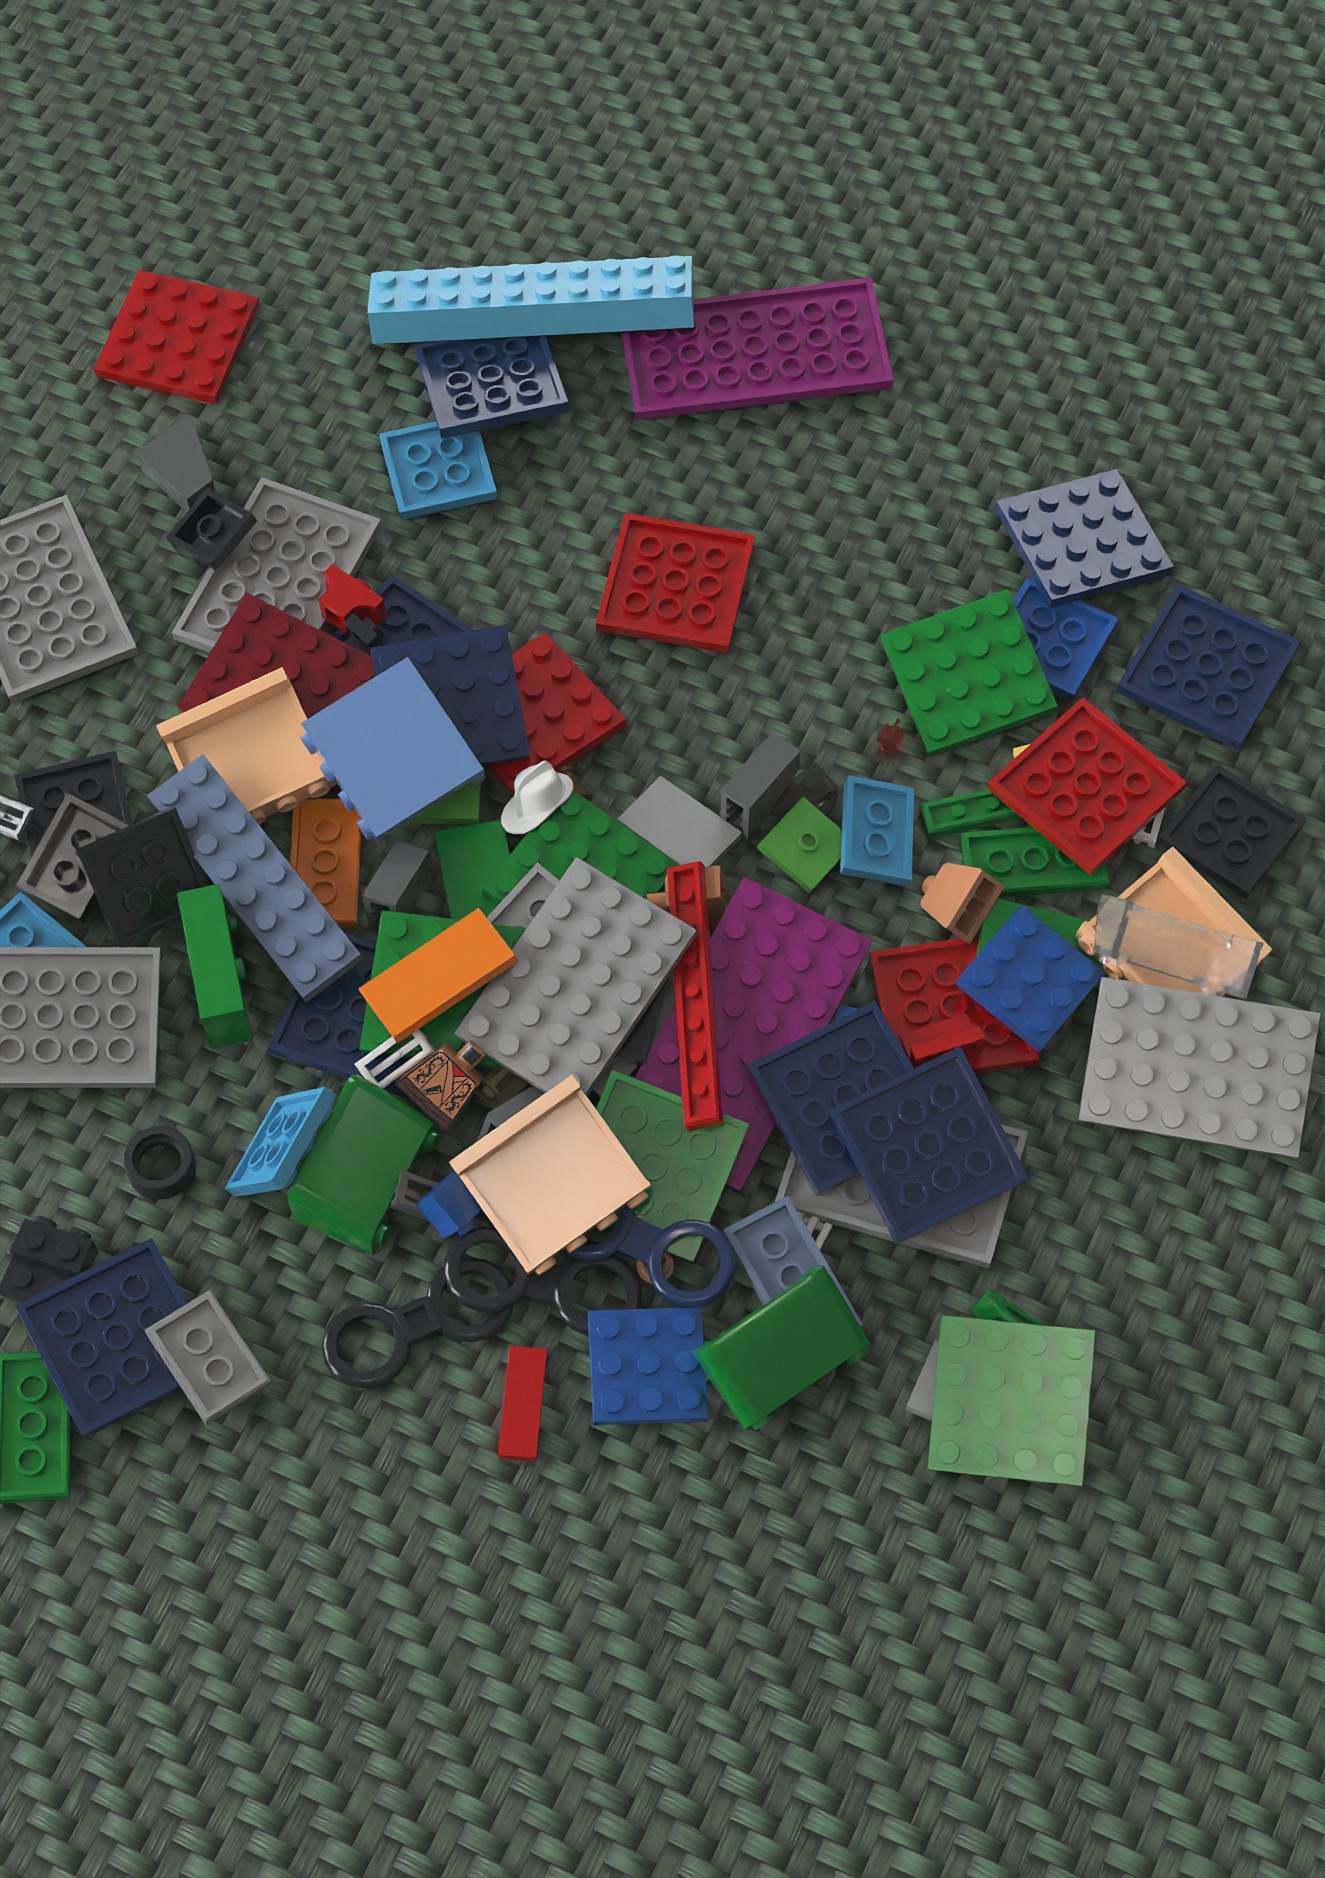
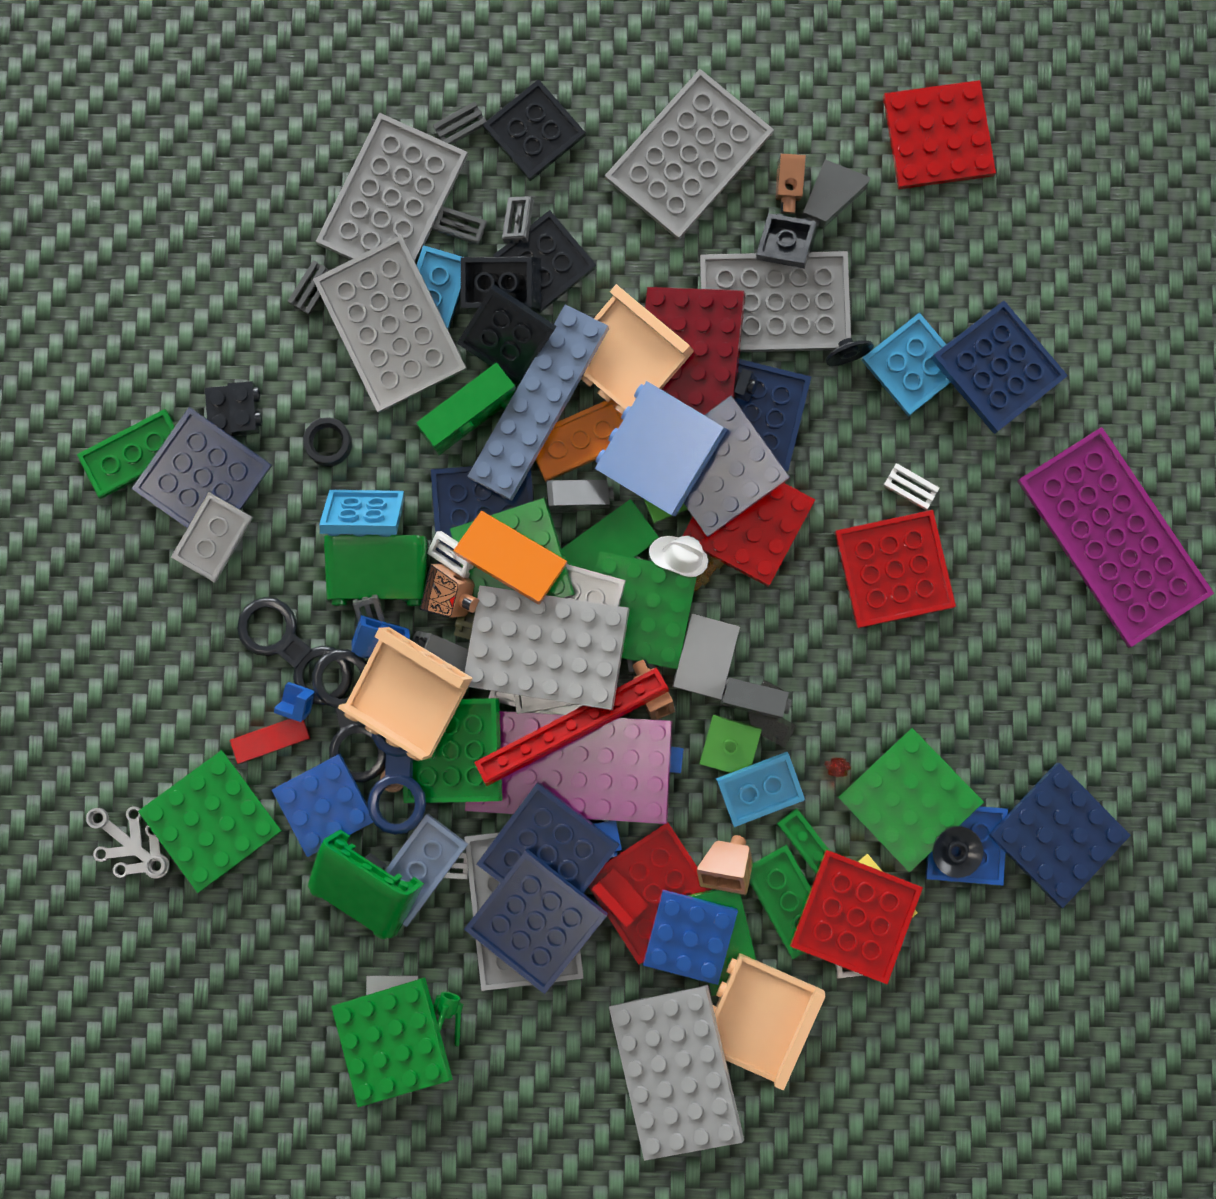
camera: 65 degrees right, 20 degrees up
(138, 499) = (790, 171): none -> nougat torso
(347, 597) = (771, 360): red brick -> none
(385, 519) = (849, 351): none -> black dish
(488, 1342) = (295, 702): none -> blue panel
(531, 299) = (1075, 365): medium azure brick -> none
(580, 524) = (929, 496): none -> white tile
(580, 1652) = (131, 845): none -> light grey plant
(598, 1528) = (209, 821): none -> green plate
(1057, 631) = (969, 853): none -> black dish
(1175, 947) = (753, 1024): clear windscreen -> none
(1208, 667) = (994, 962): dark blue plate -> none
(1231, 831) = (869, 1027): black plate -> none

